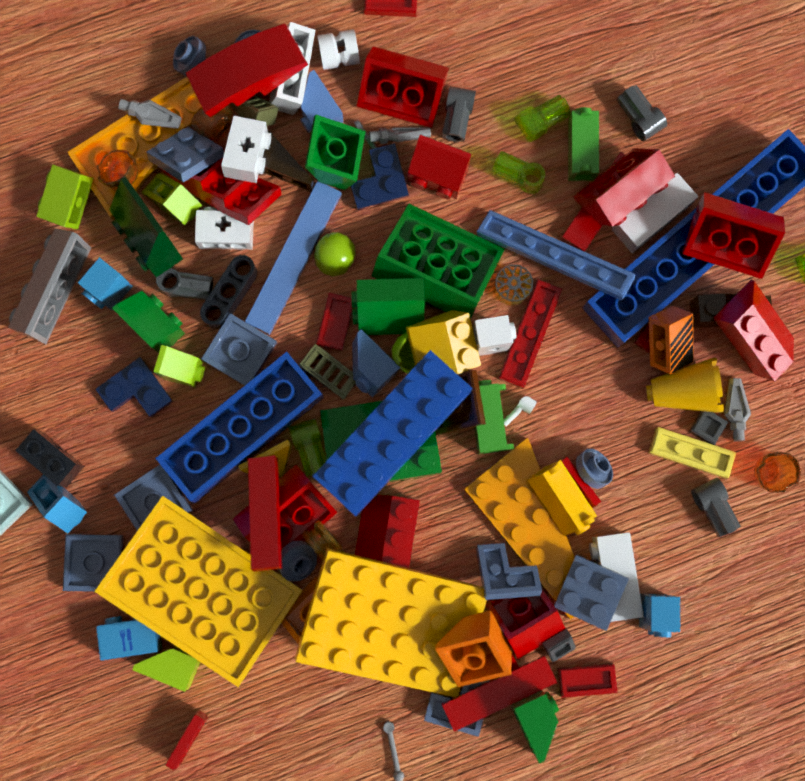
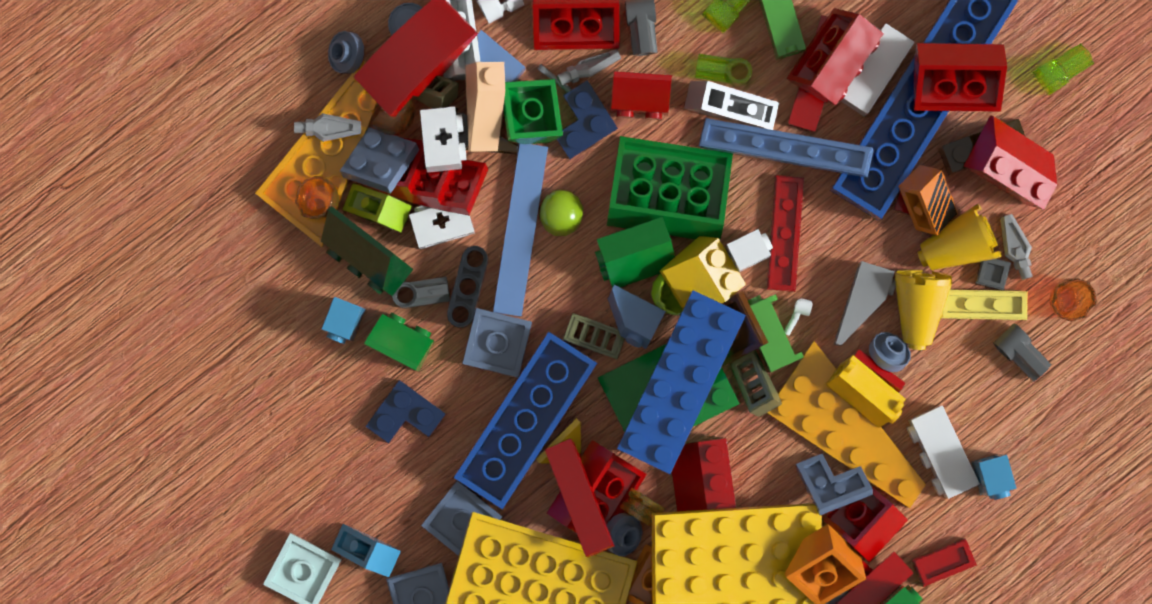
camera: 10 degrees left, 5 degrees up
(49, 458) = (345, 509): black brick -> none
(50, 285) = (285, 336): light grey slope -> none
(64, 197) = (269, 241): lime brick -> none
(179, 367) = (446, 379): slope -> none
(294, 130) = (484, 104): none -> light nougat slope
(308, 441) = (596, 413): clear neon green piece -> none
(335, 322) = (584, 282): red tile -> none
(467, 476) = (755, 402): none -> olive slope
(513, 285) = (753, 189): wheel -> none
(515, 202) = (730, 104): none -> light grey slope
(559, 645) = (906, 537): dark grey tile -> none
(589, 408) = (866, 294): none -> light grey slope
(591, 592) = (921, 476): sand blue plate -> none
(635, 434) = (920, 304): none -> yellow cone

